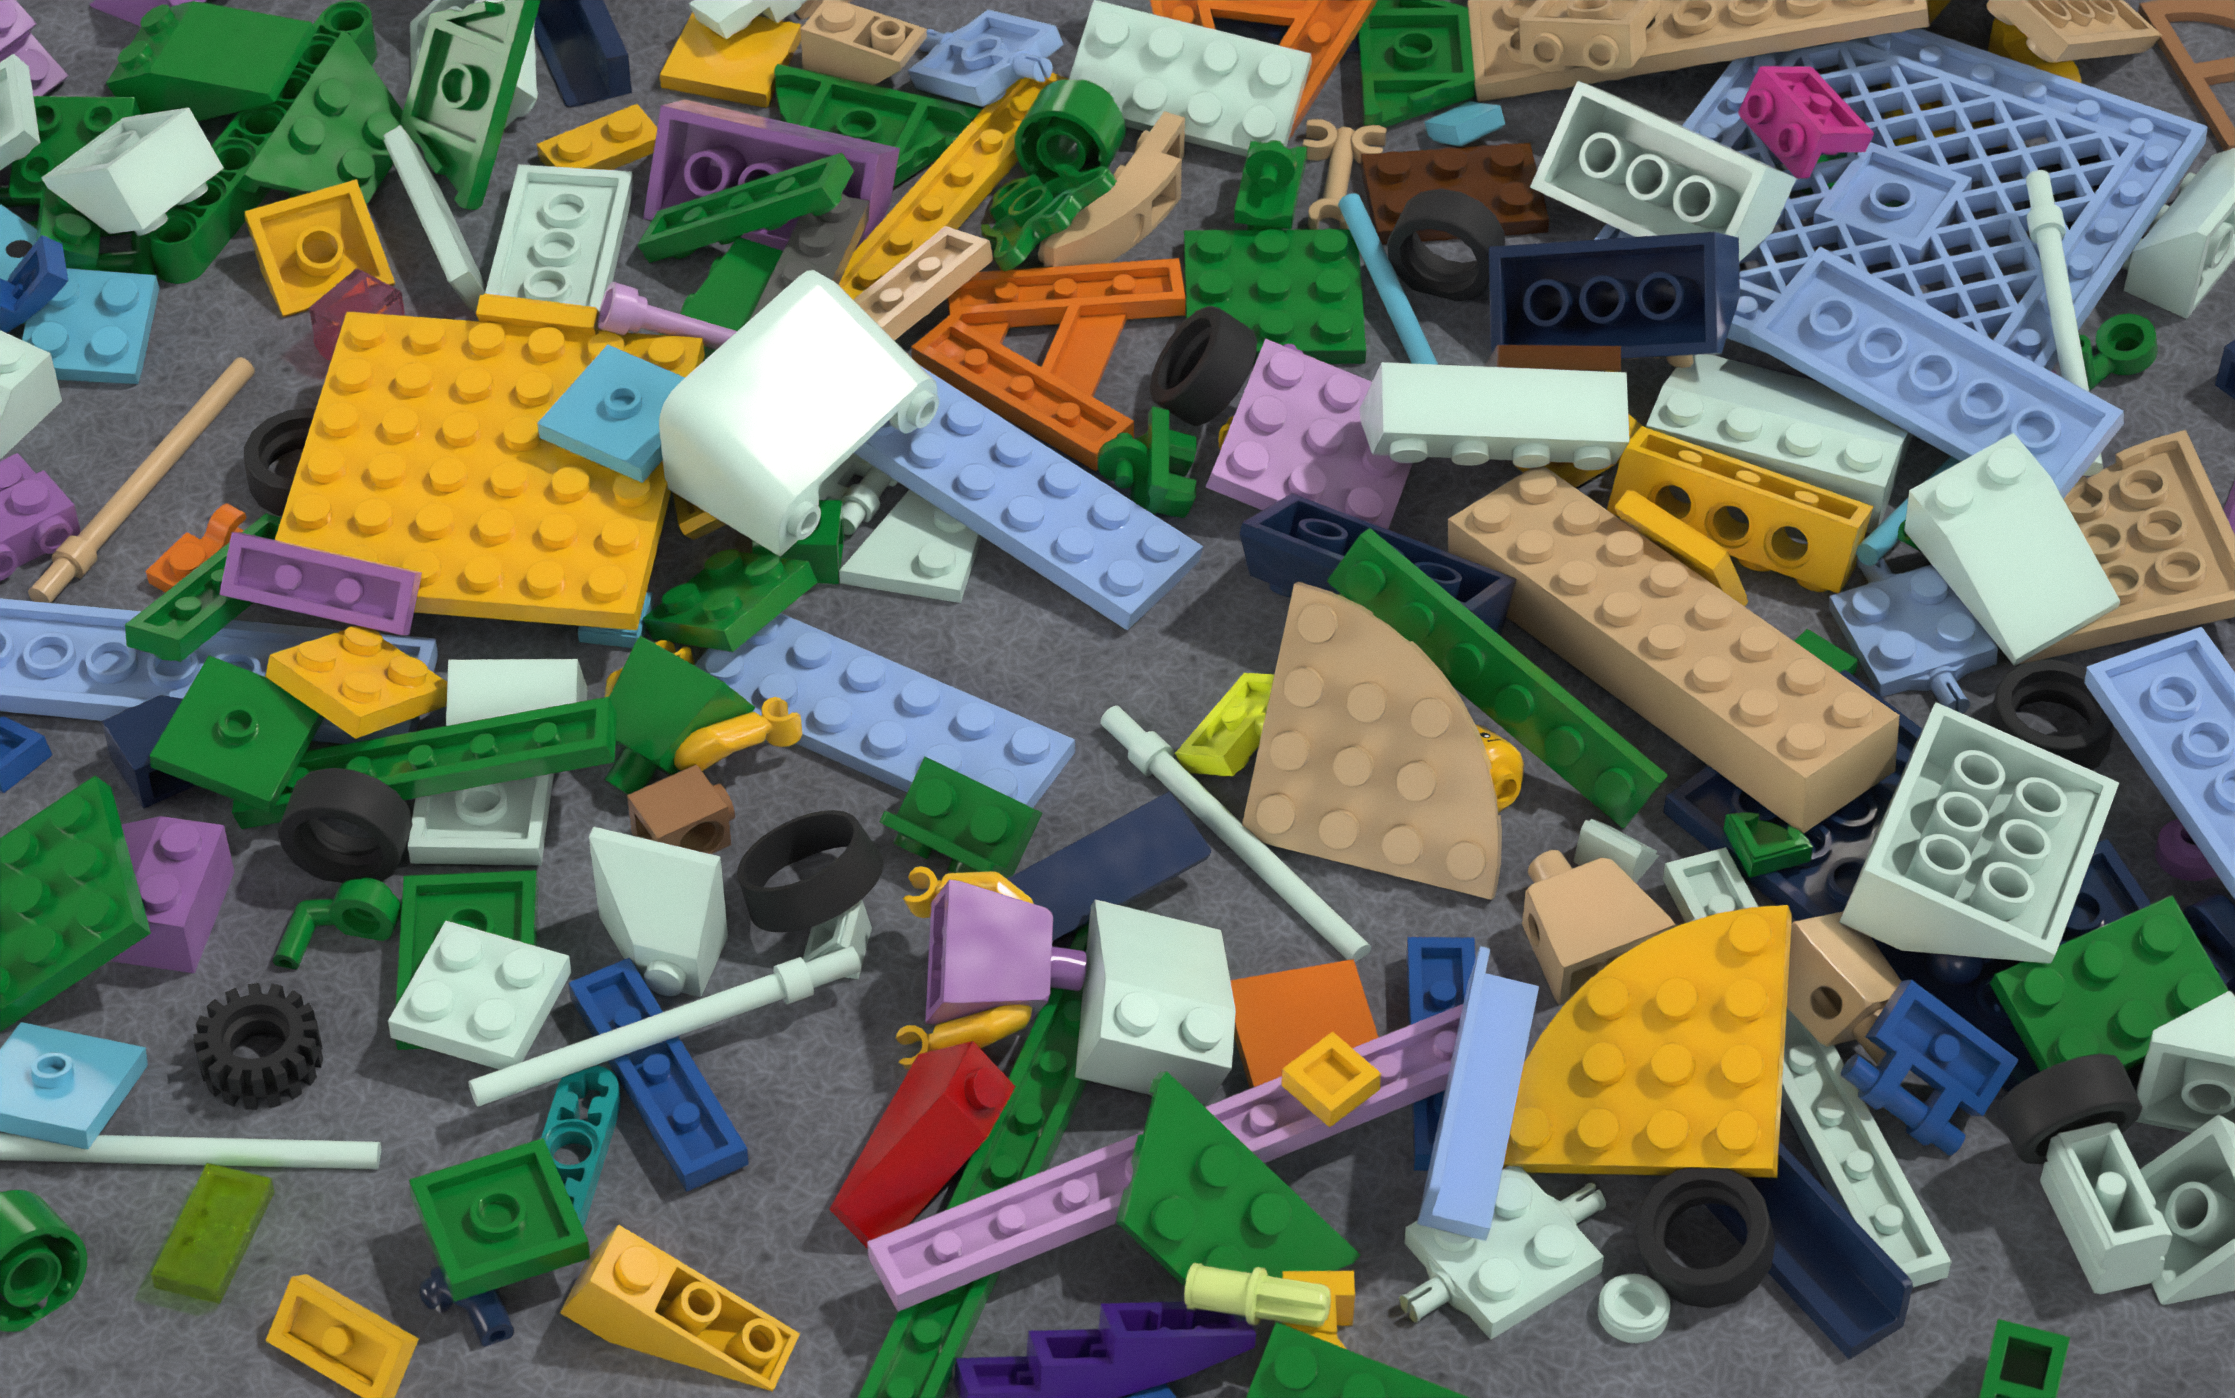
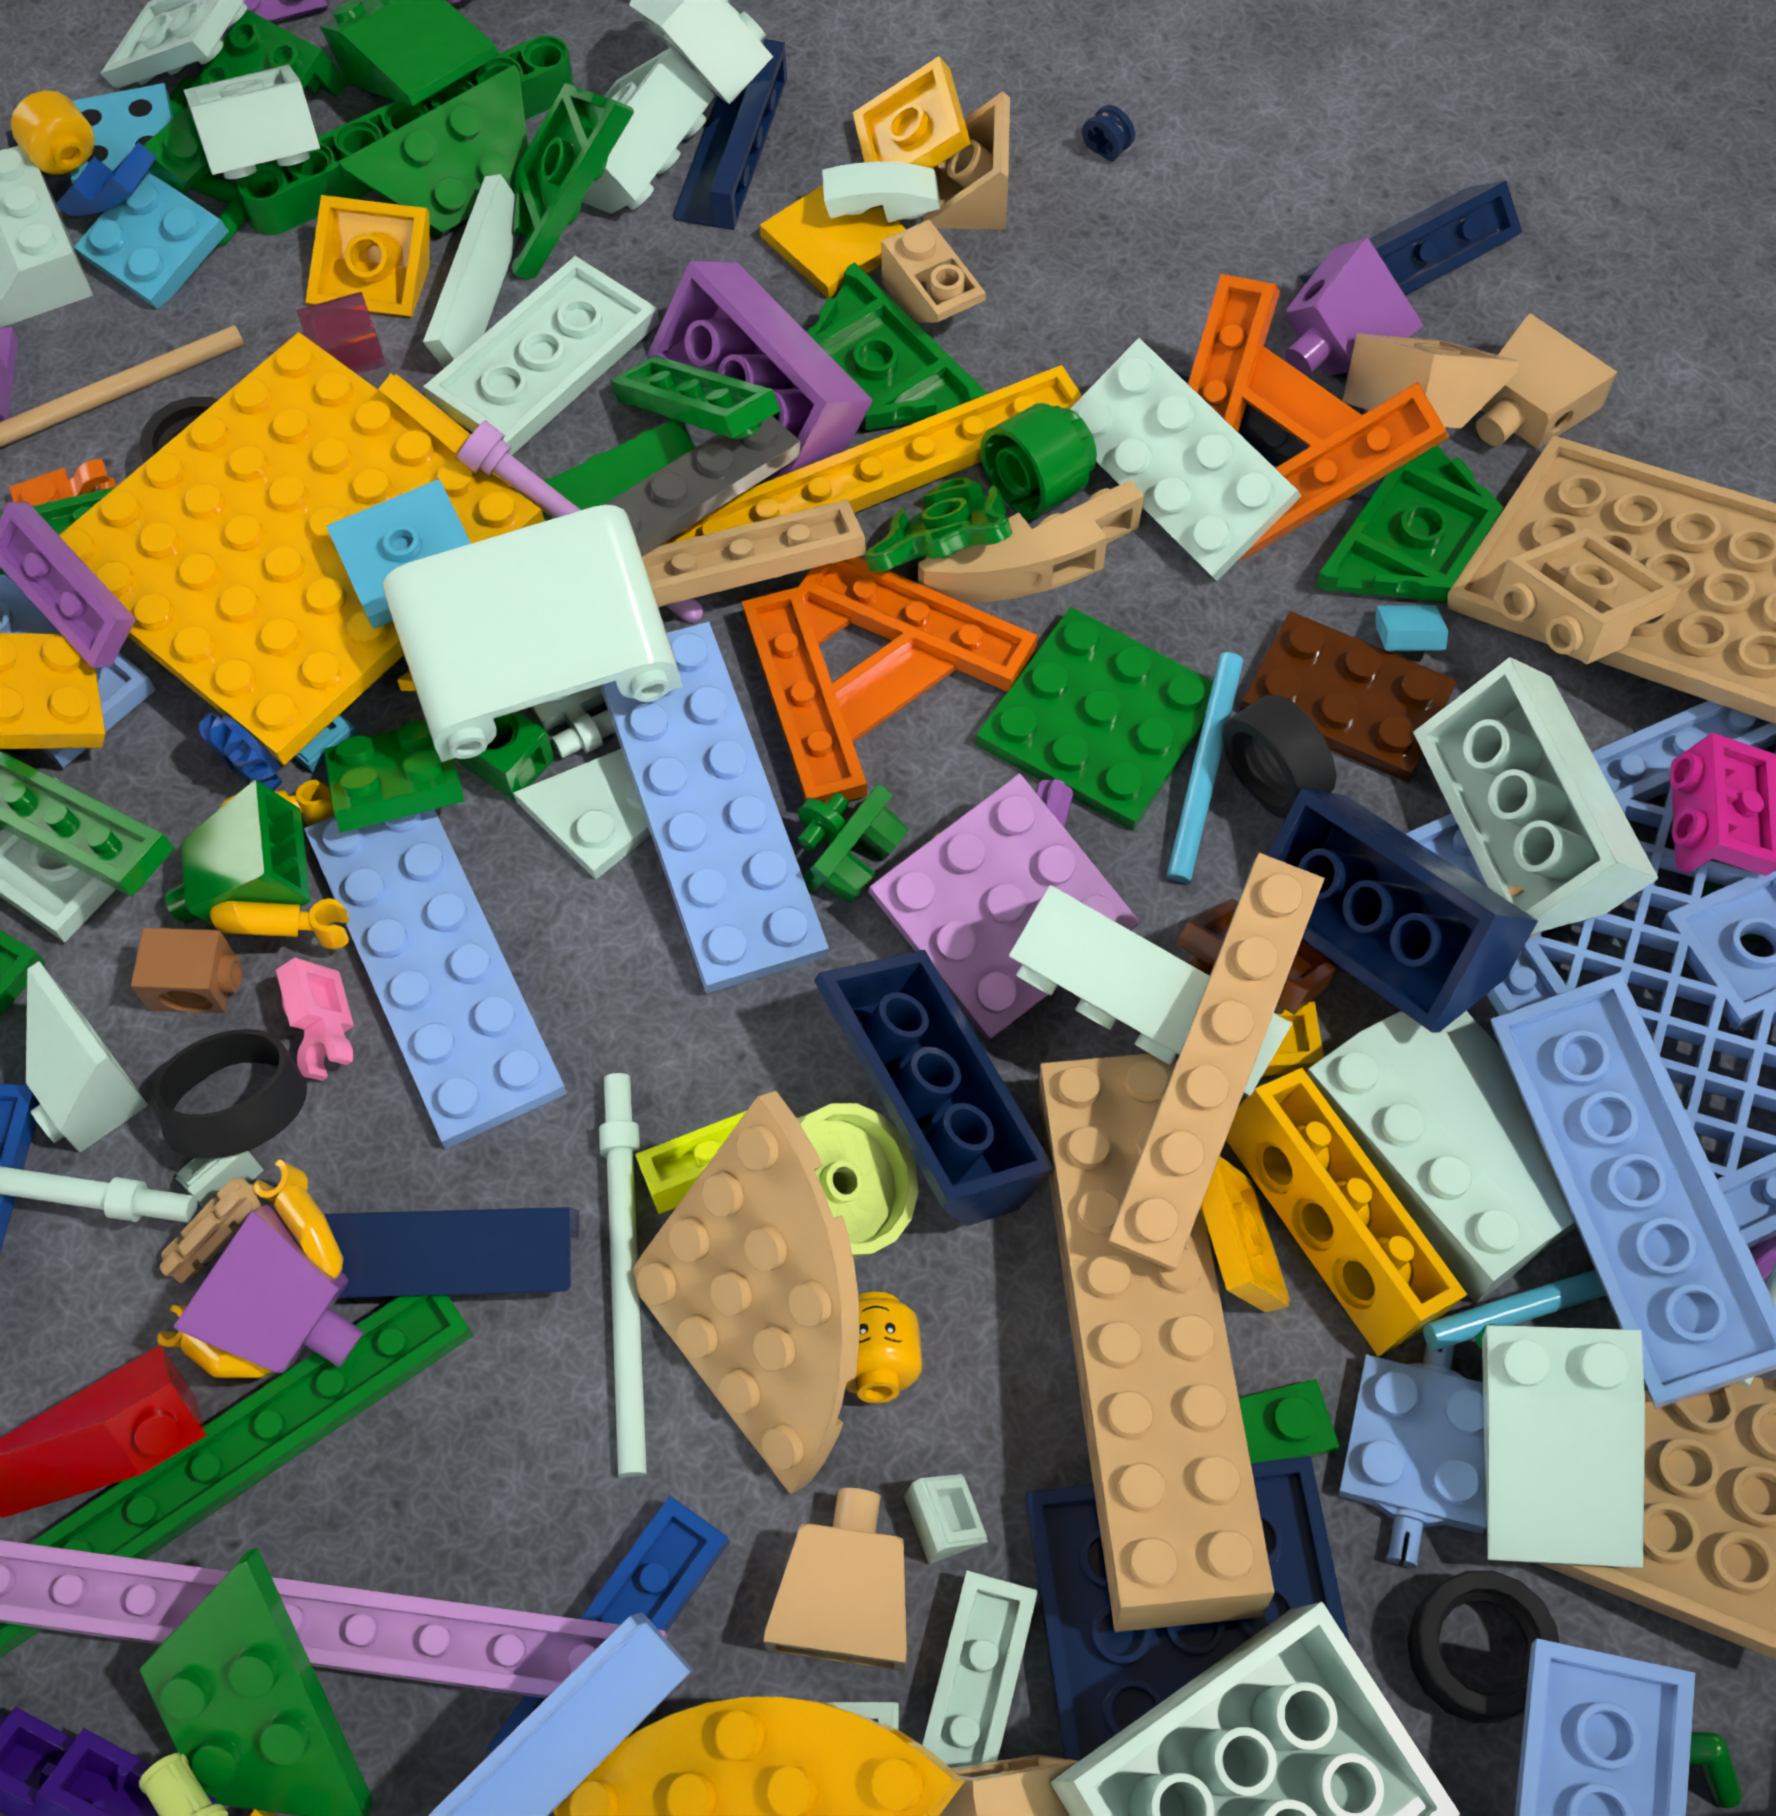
camera: 35 degrees right, 15 degrees up
(510, 686) = (146, 778): light aqua slope -> none
(563, 630) = (239, 750): none -> blue gear
(603, 142) = (656, 267): yellow plate -> none
(813, 788) = (318, 1005): none -> bright pink plate
(885, 964) = (209, 1230): none -> tan axle
(962, 820) = (393, 1120): green bracket -> none
(985, 57) = (1025, 345): light blue plate -> none
(1154, 1002) = (393, 1419): light aqua slope -> none
(1203, 366) = (959, 765): black tyre -> none
(1270, 186) = (1173, 603): green hips -> none
(1295, 1009) = (508, 1530): orange tile -> none
(1331, 1079) = (426, 1644): yellow plate -> none
(1341, 147) = (1280, 592): tan bar -> none
(1499, 679) = (939, 1280): green plate -> none
(1594, 420) = (1215, 1062): none -> tan plate
(1765, 845) = (1072, 1617): green tile -> none

